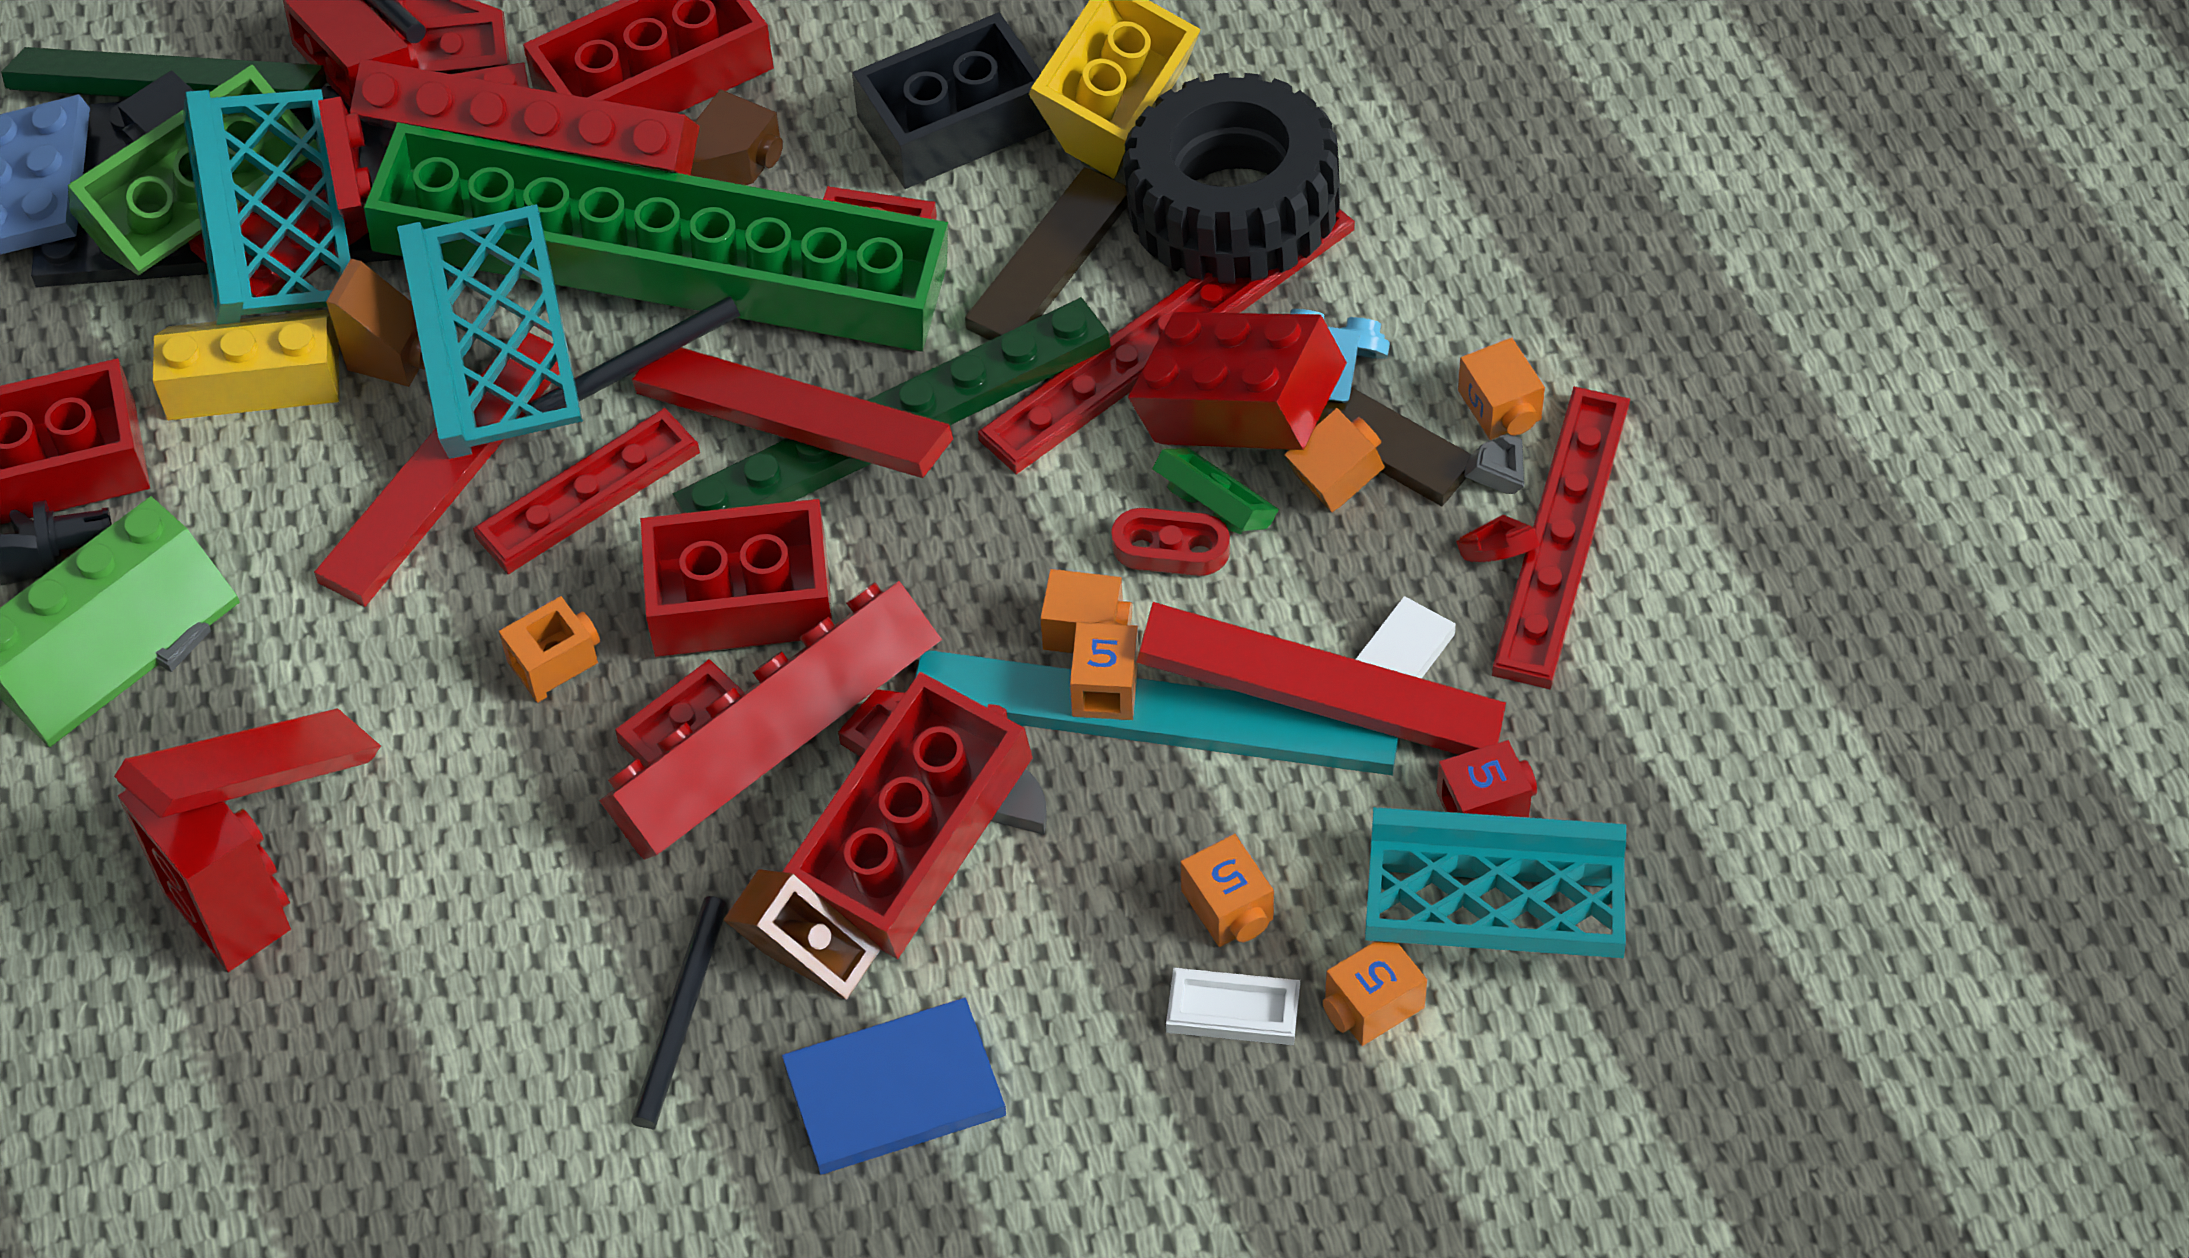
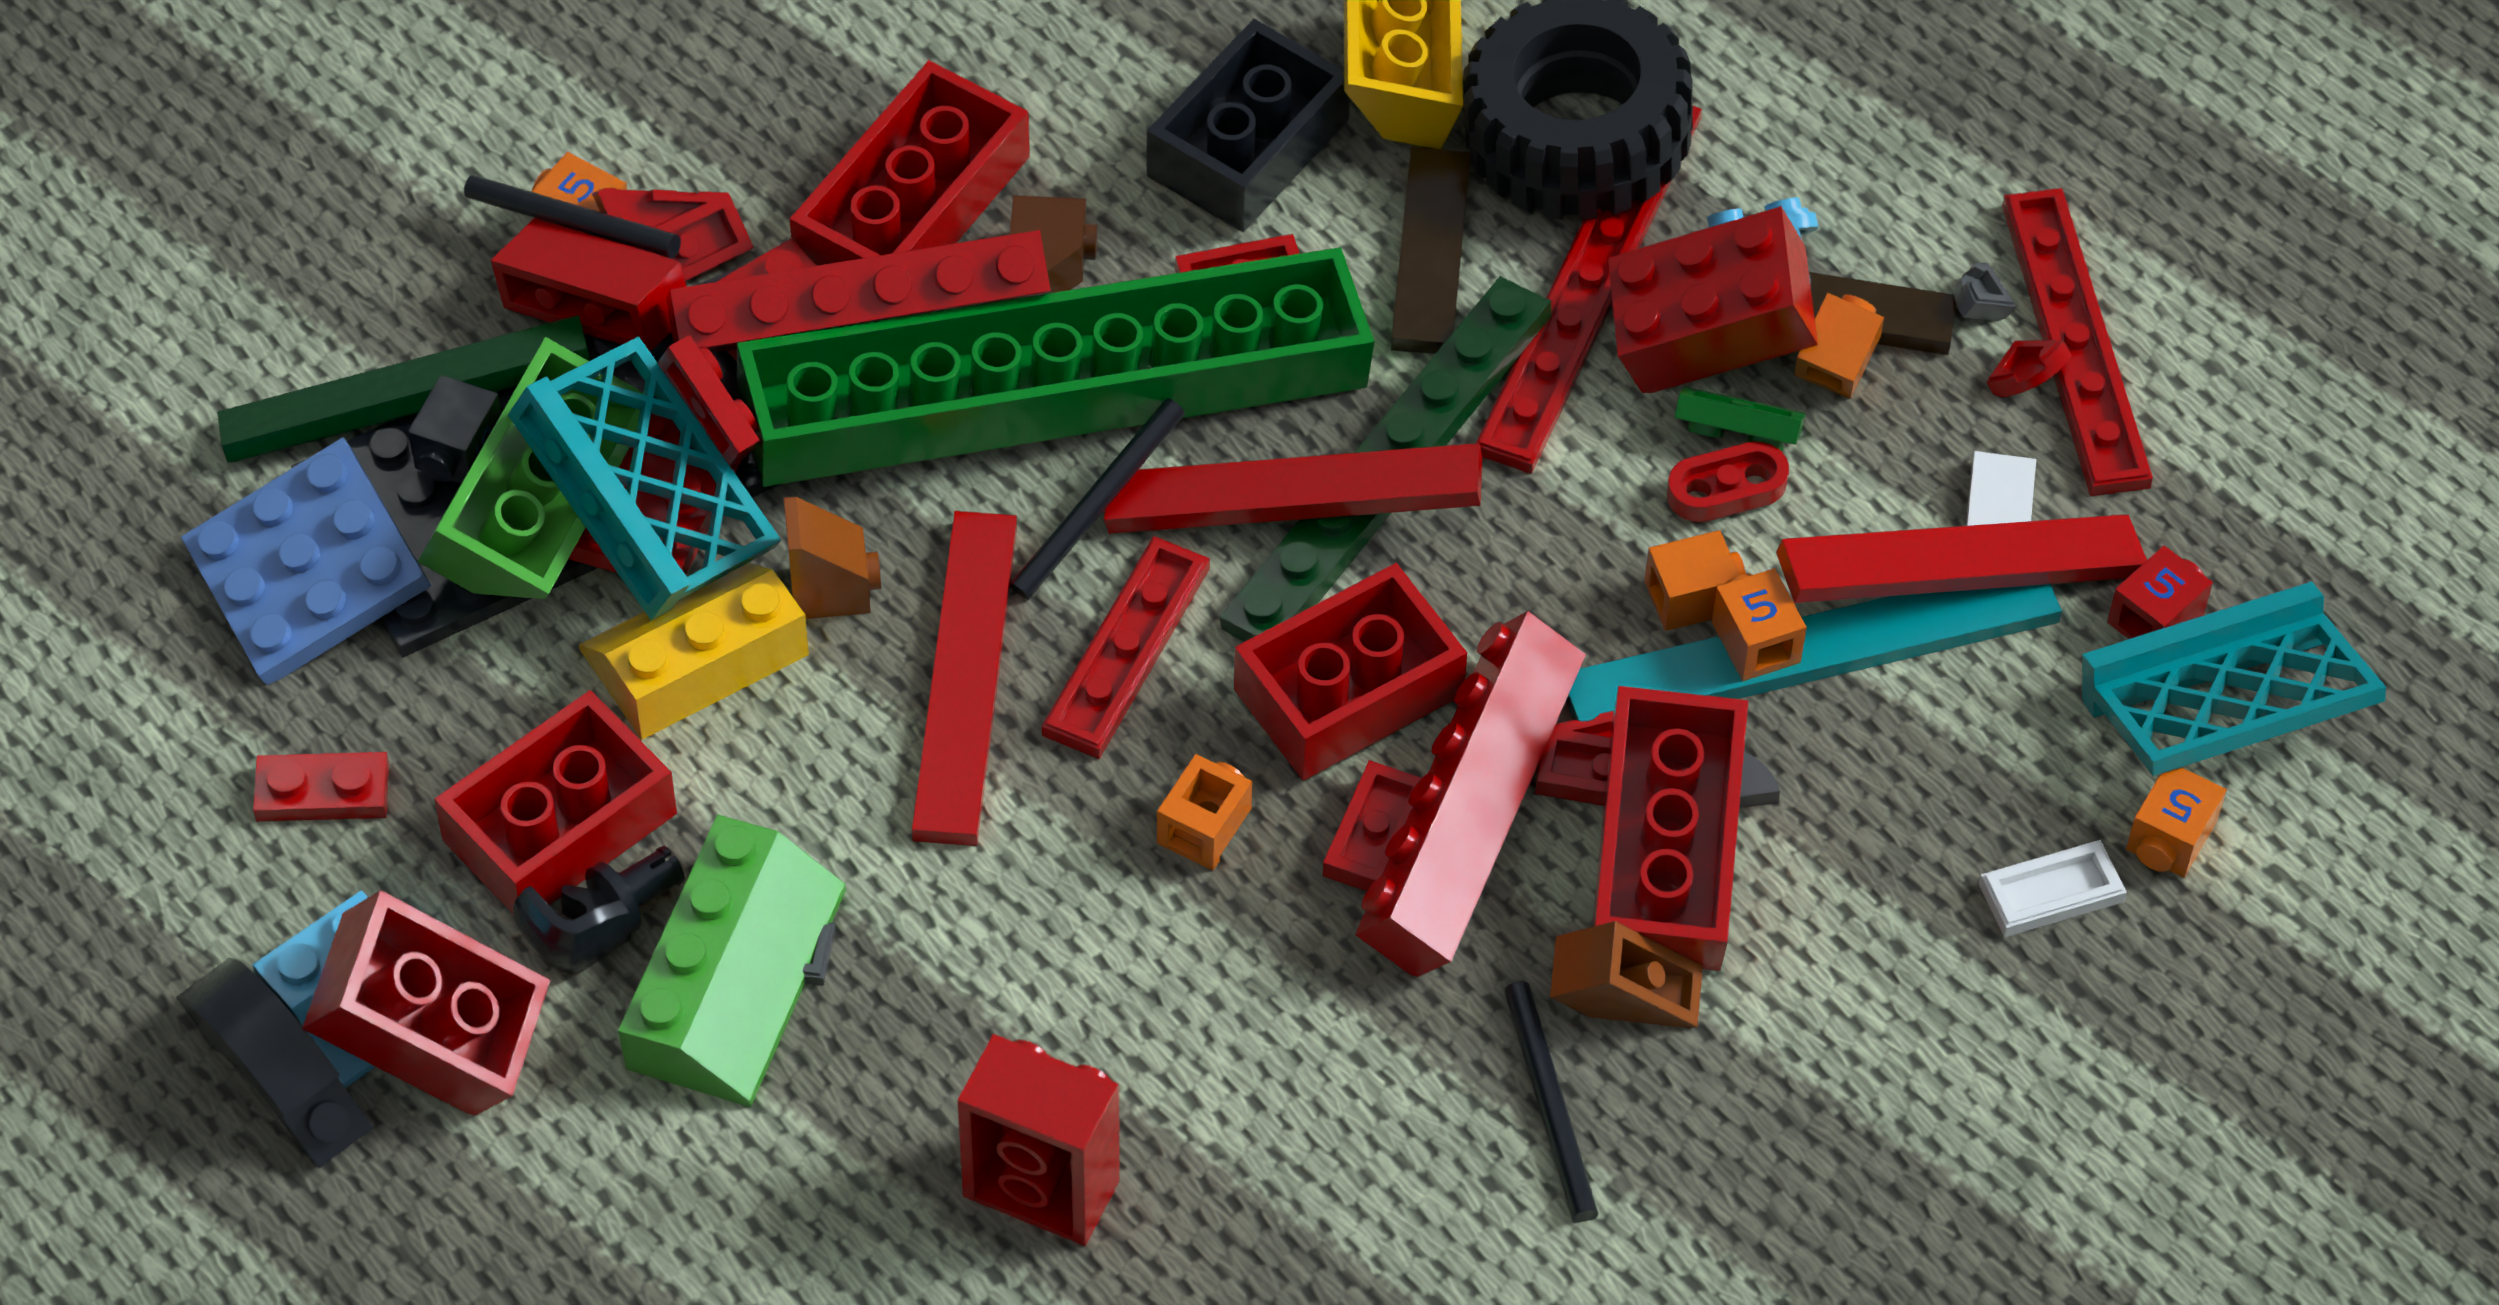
camera: 30 degrees left, 0 degrees up
(245, 762) = (1046, 1022): red tile -> none
(440, 340) = (908, 536): teal fence -> none
(893, 1085) = (1793, 1086): blue tile -> none
(1228, 891) = (1991, 785): orange brick -> none
(1501, 389) = (1945, 222): orange brick -> none

